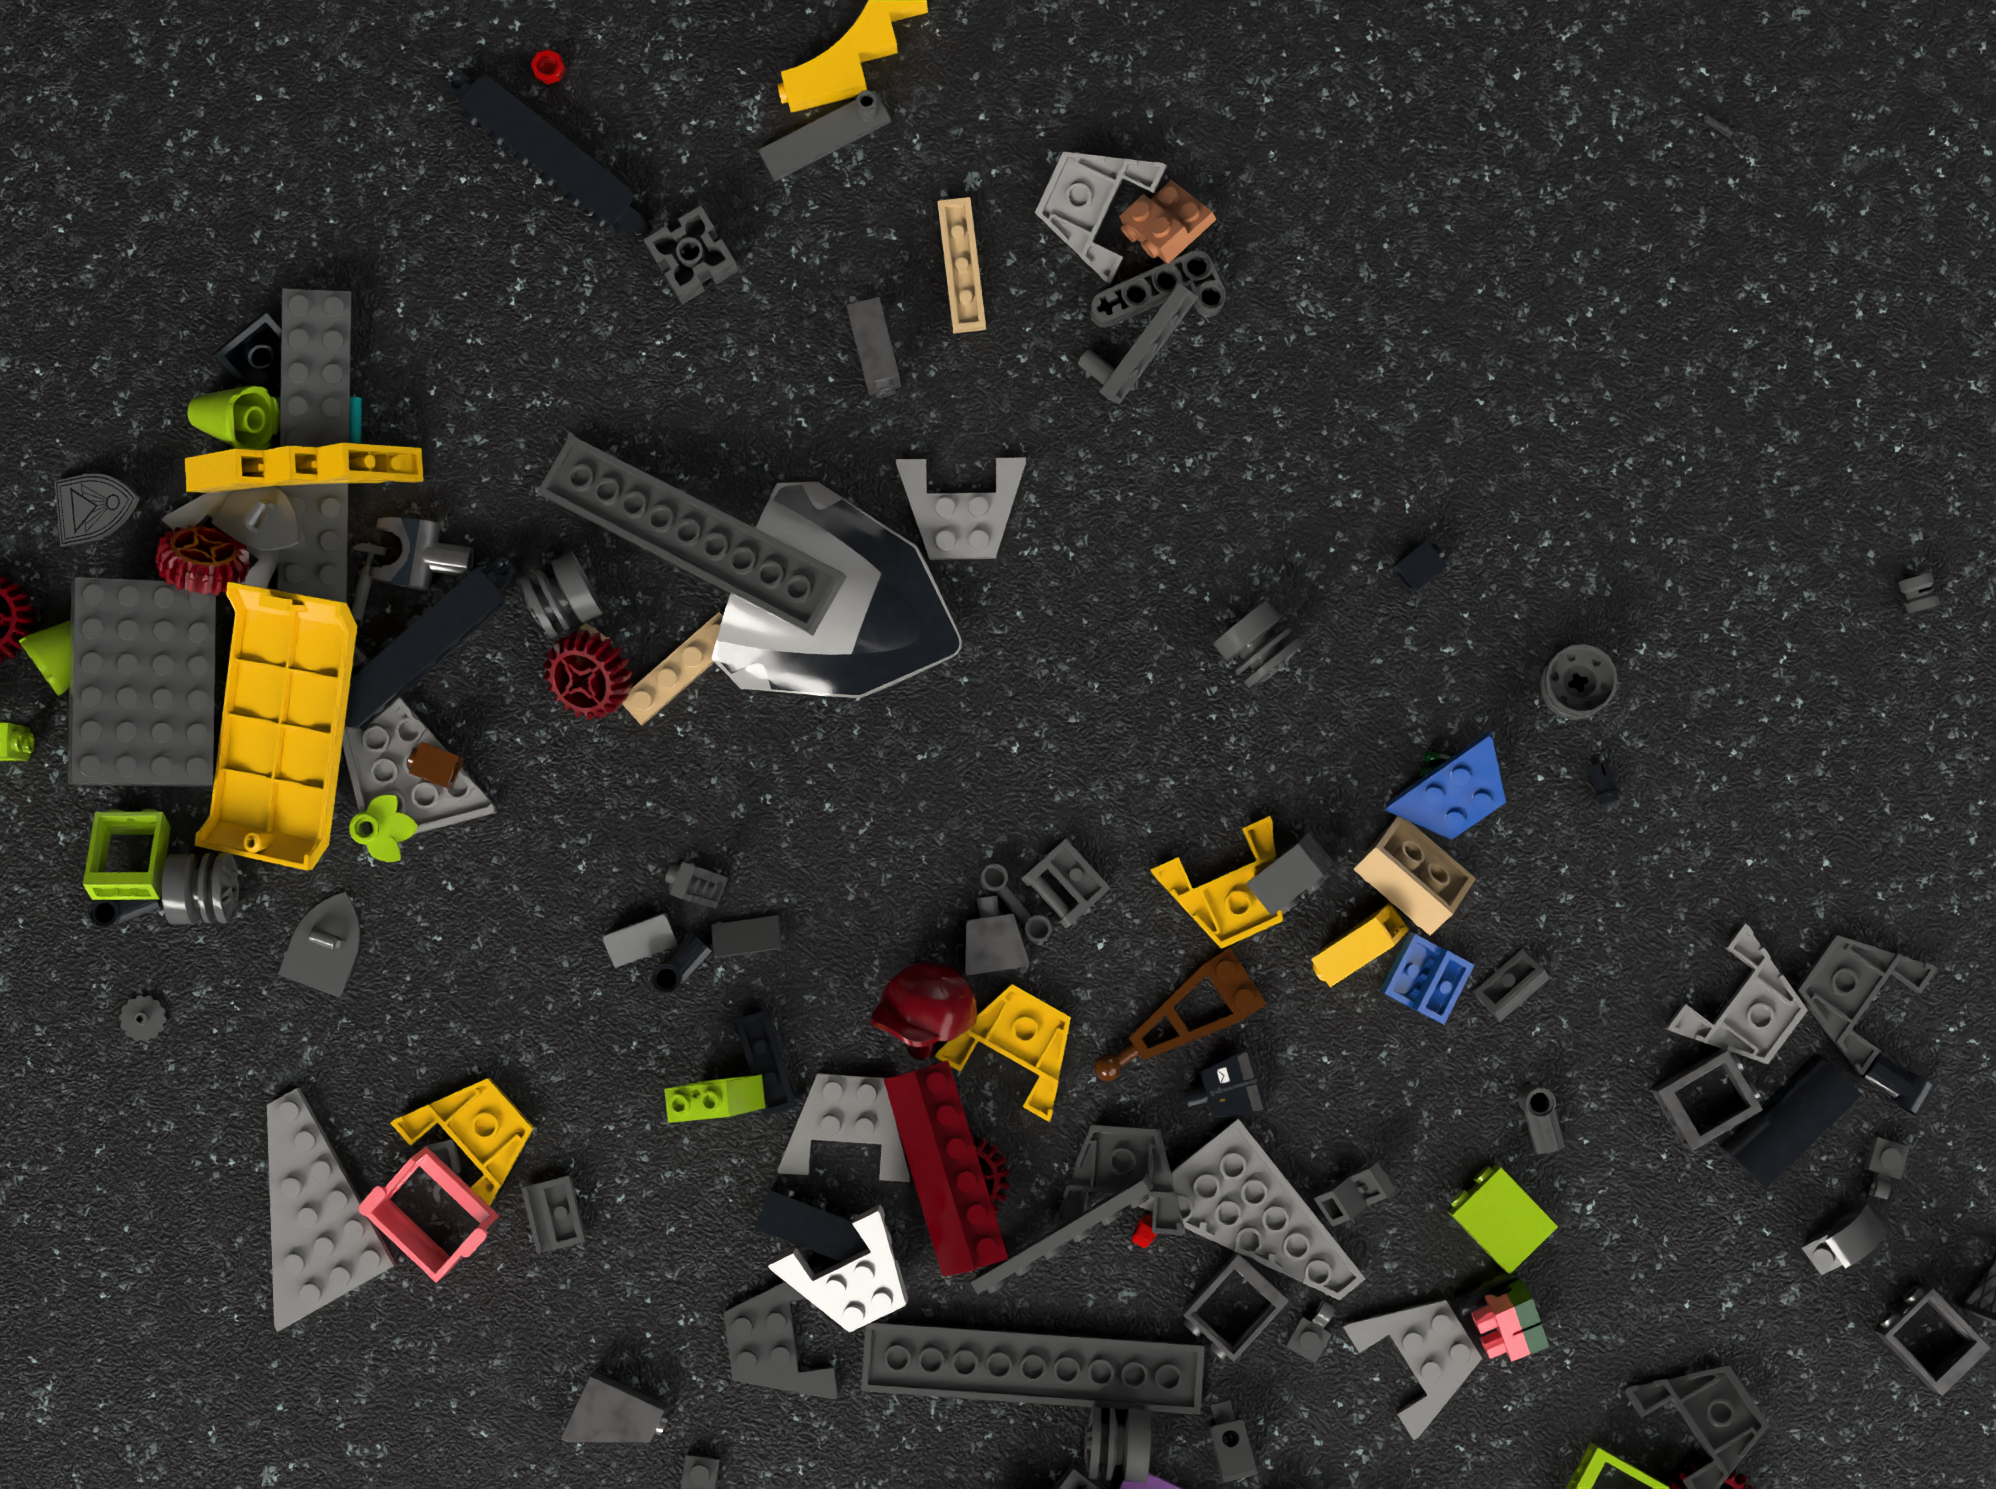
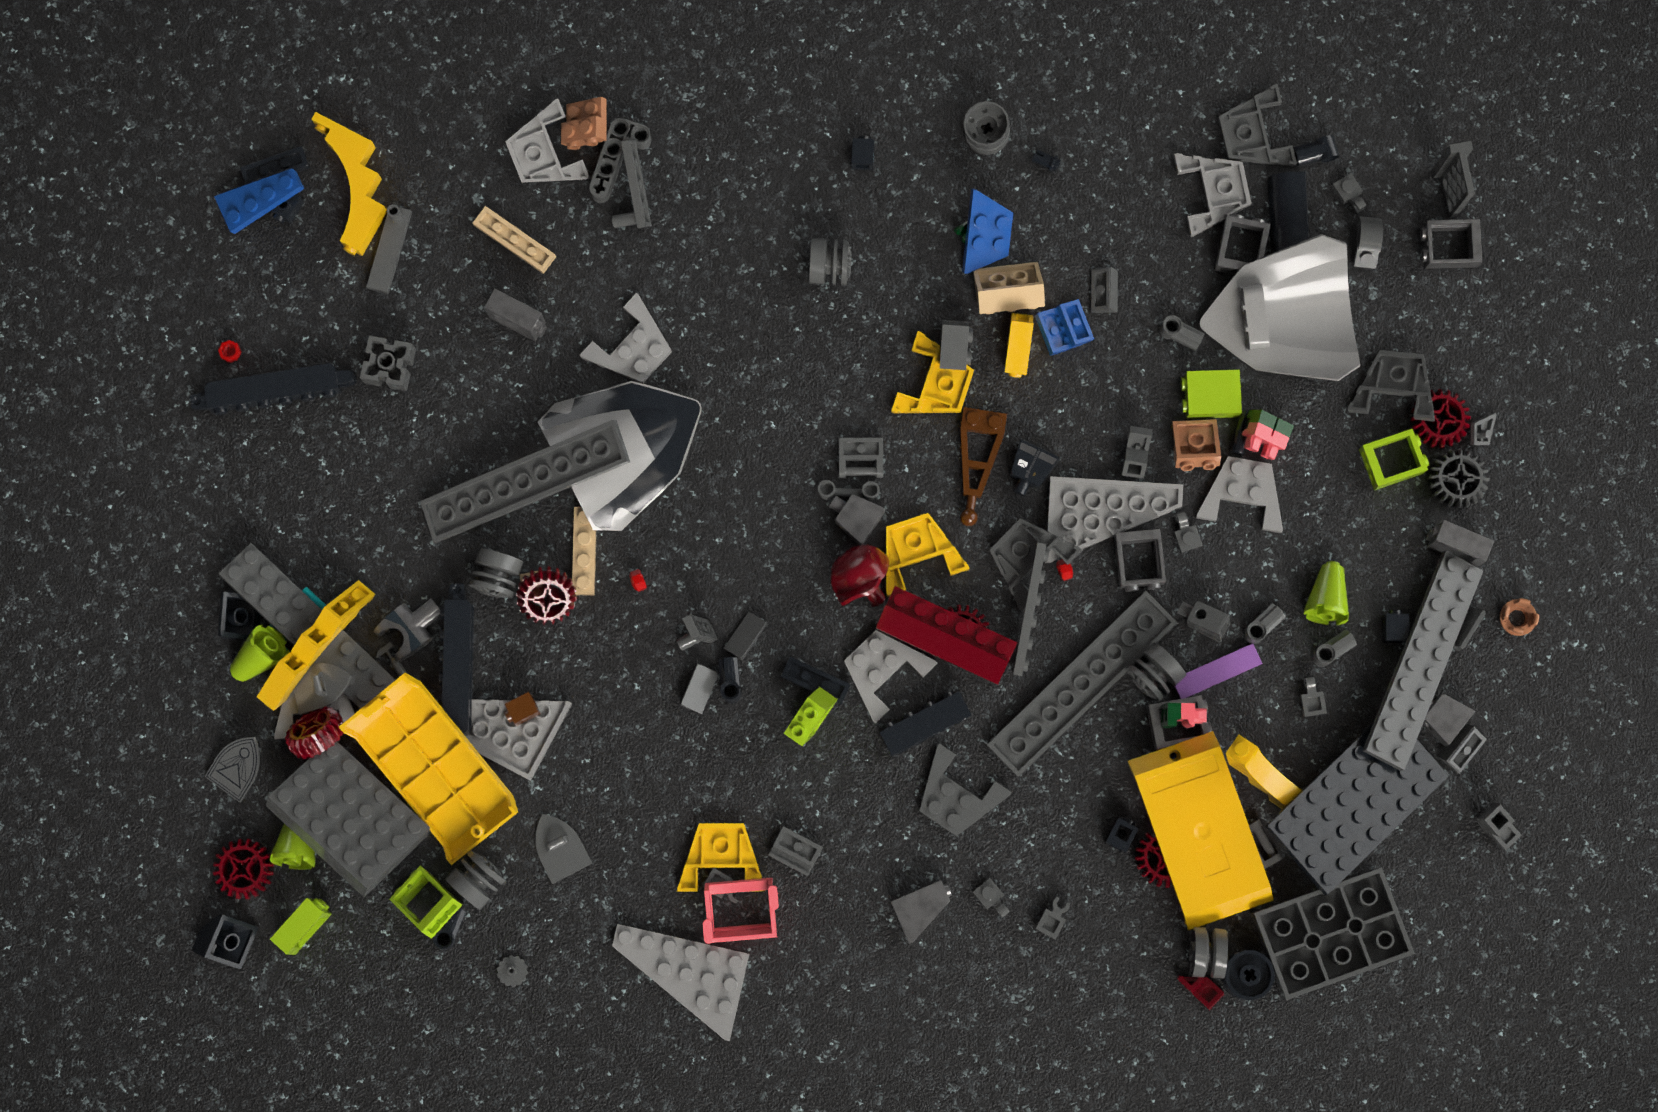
camera: 40 degrees left, 5 degrees down
(388, 828) = (531, 761): lime plate -> none
(699, 759) = (637, 580): none -> red tile
(856, 1288) = (966, 729): wing -> none
(1426, 1252) = (1196, 444): none -> nougat plate
(1677, 1225) = (1290, 312): none -> light grey windscreen

